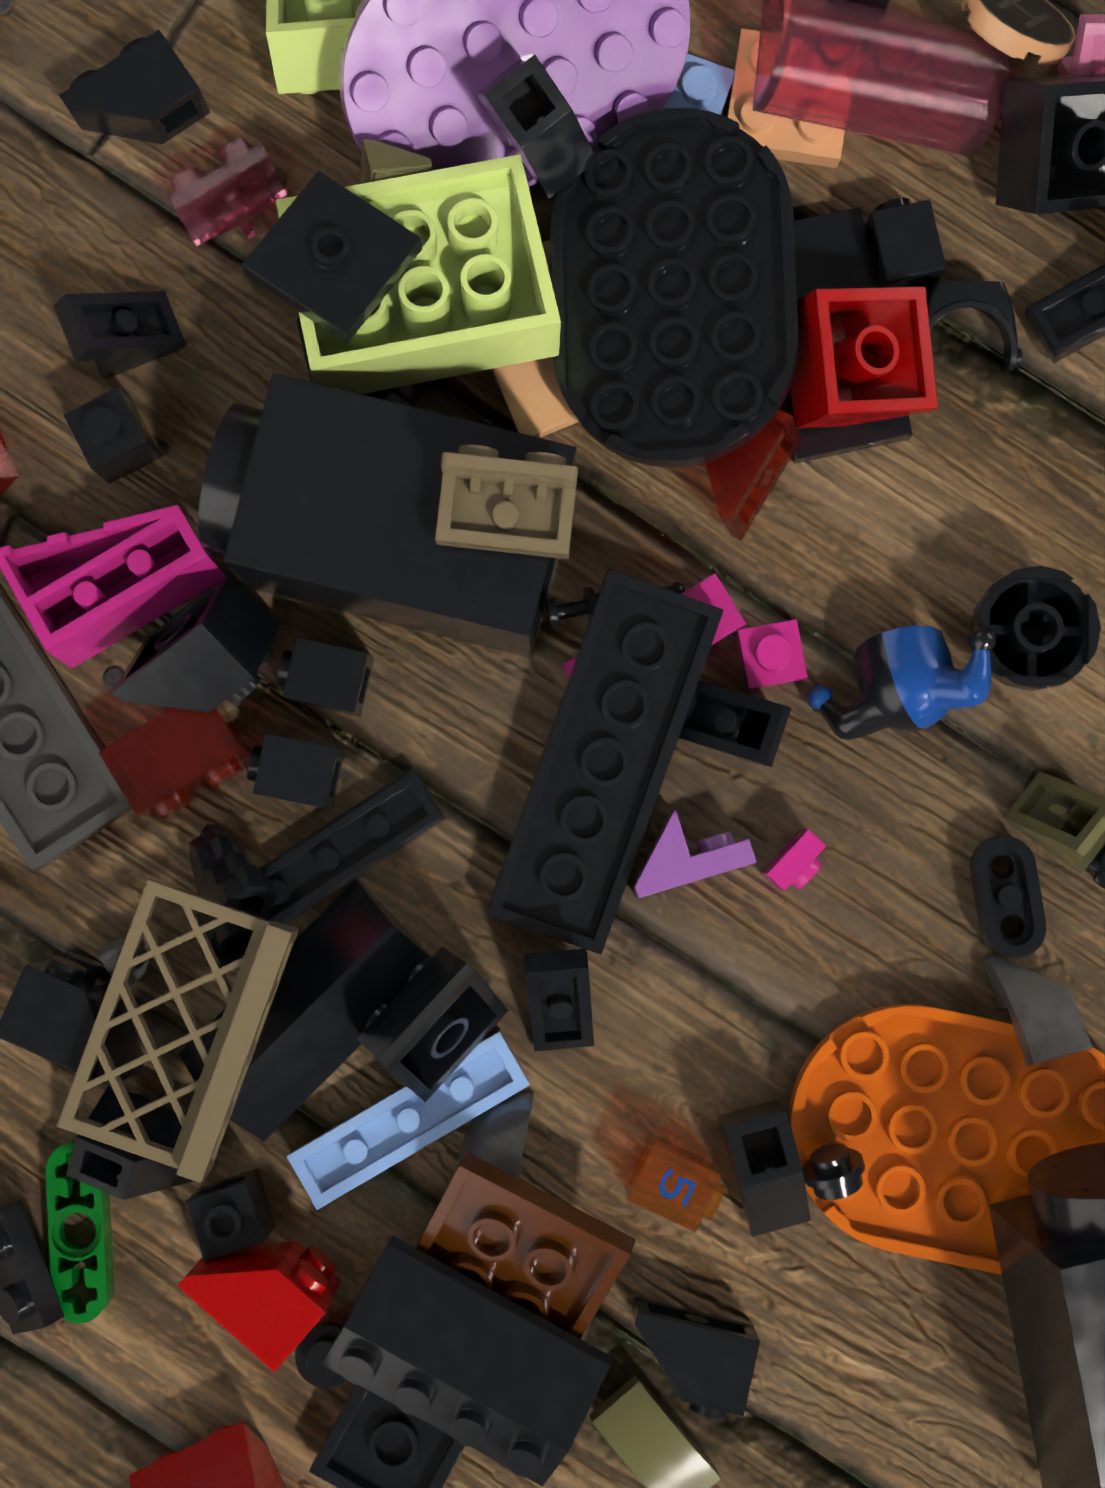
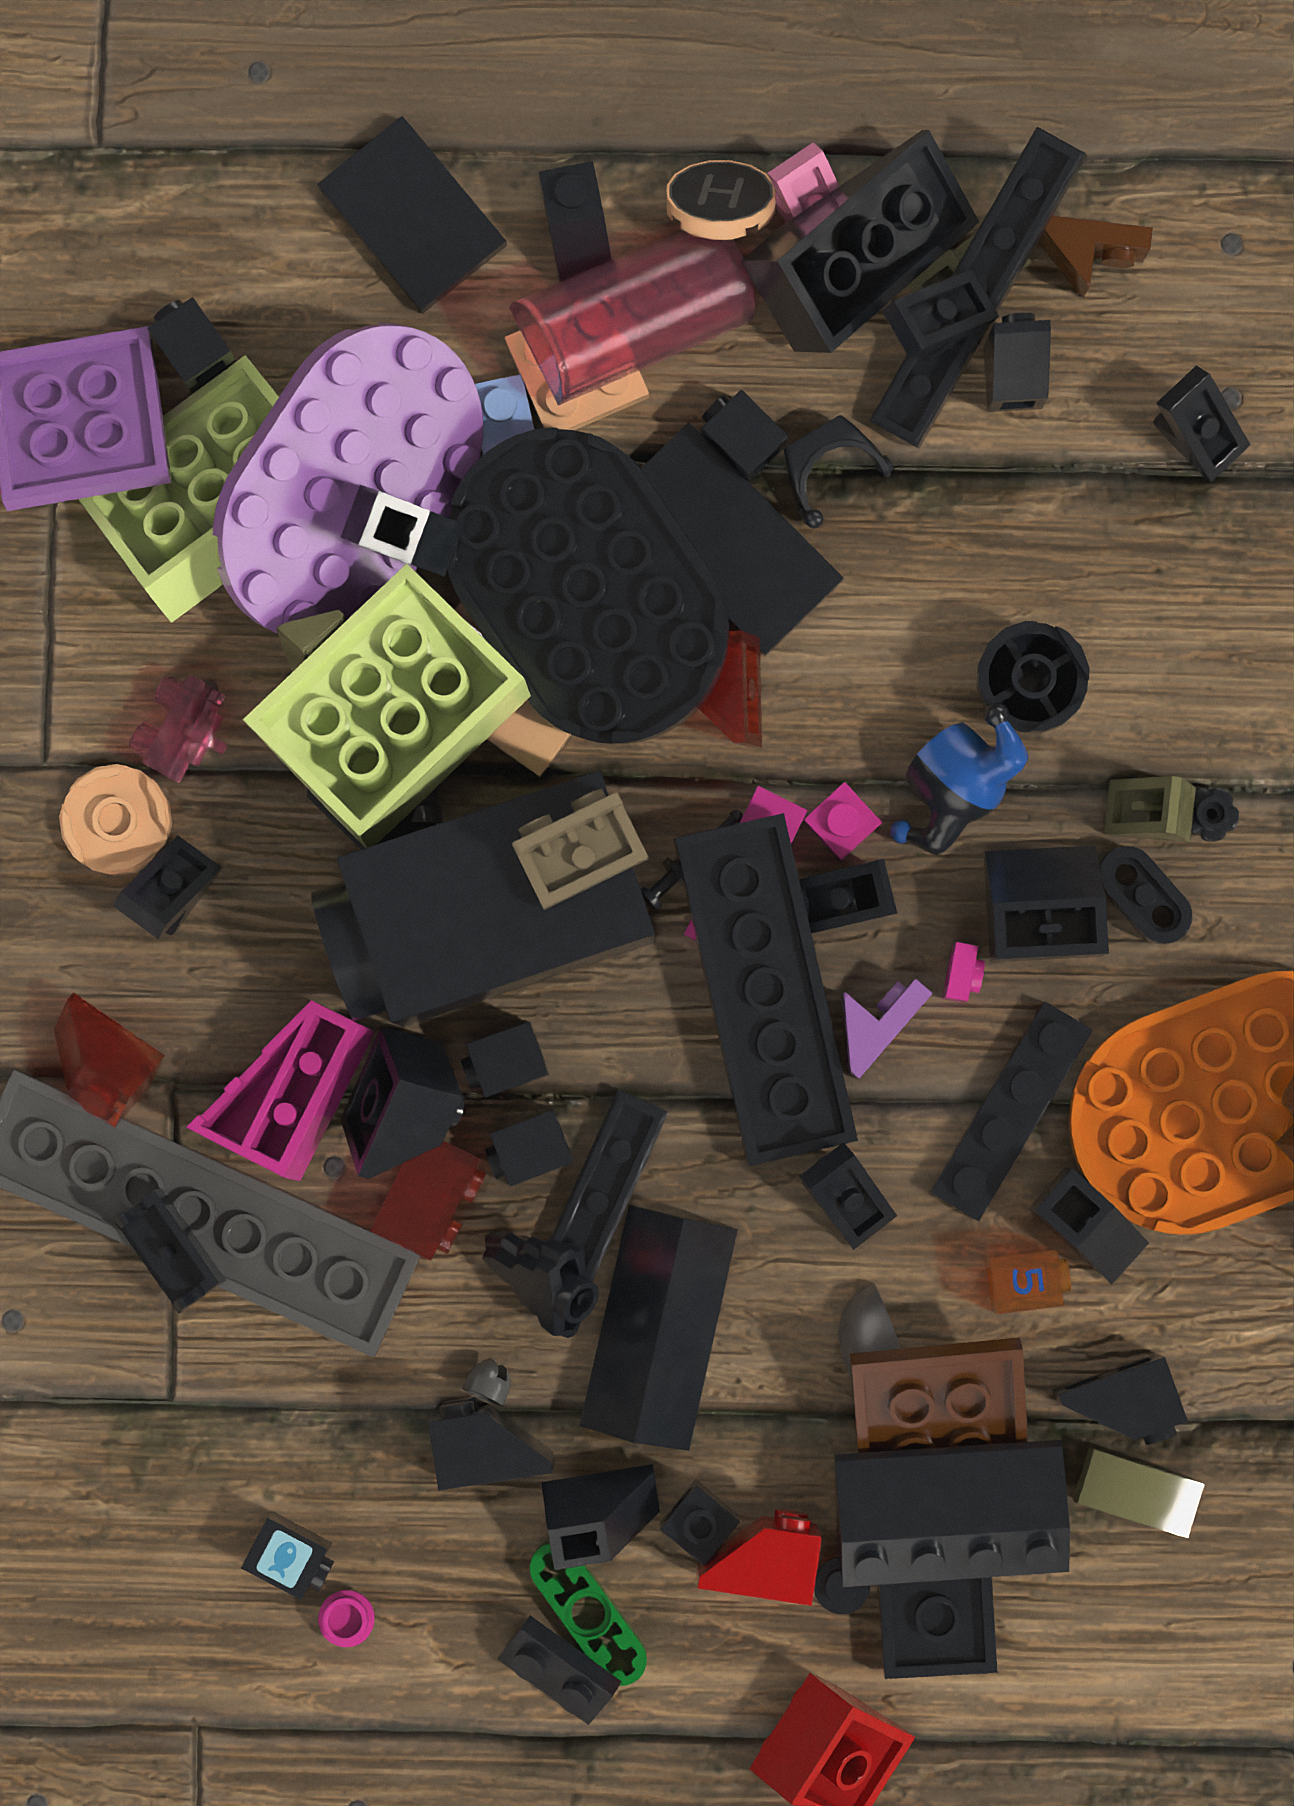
camera: 30 degrees left, 0 degrees up
(112, 435) = (217, 977): black brick -> none
(118, 240) = (115, 819): none -> light nougat tile
(138, 94) = (63, 691): black slope -> none
(231, 1049) = (624, 1384): dark tan fence -> none
(332, 257) = (319, 738): black plate -> none
(405, 1123) = (789, 1363): light blue plate -> none
(432, 1022) = (761, 1274): black slope -> none
(759, 1016) = (1011, 1111): none -> black plate
(834, 1171) = (1140, 1191): black plate -> none
(862, 357) = (768, 548): red slope -> none
(912, 848) = (1045, 904): none -> black slope
(1039, 1010) = (1223, 969): flat silver slope -> none

